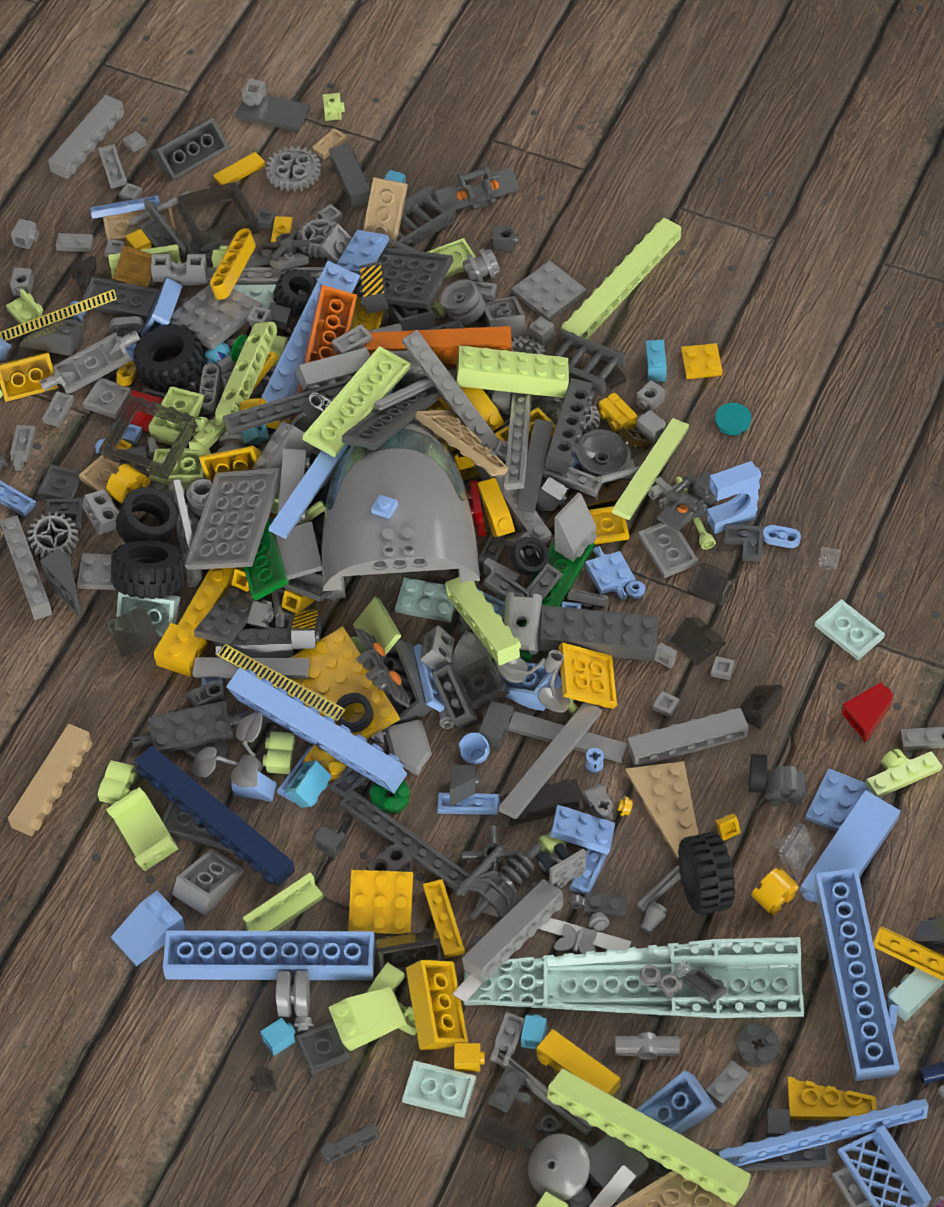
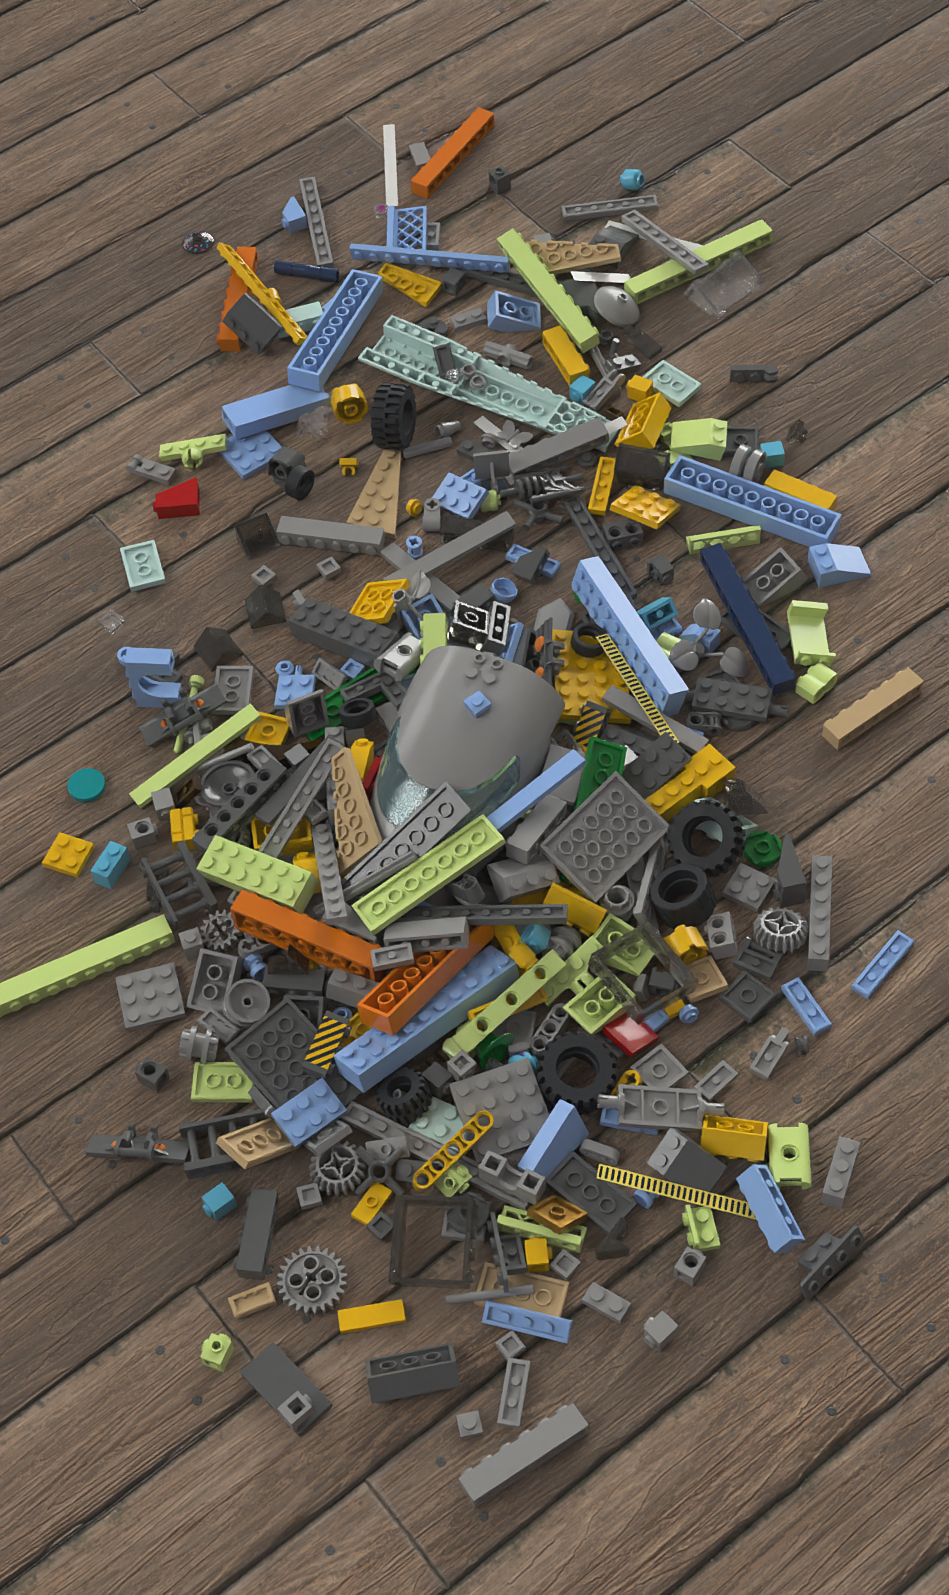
camera: 150 degrees left, 0 degrees up
(100, 609) = (762, 848): none -> green tile
(222, 991) = (801, 490): none -> yellow brick
(482, 1014) = (611, 413): none -> dark brown plate

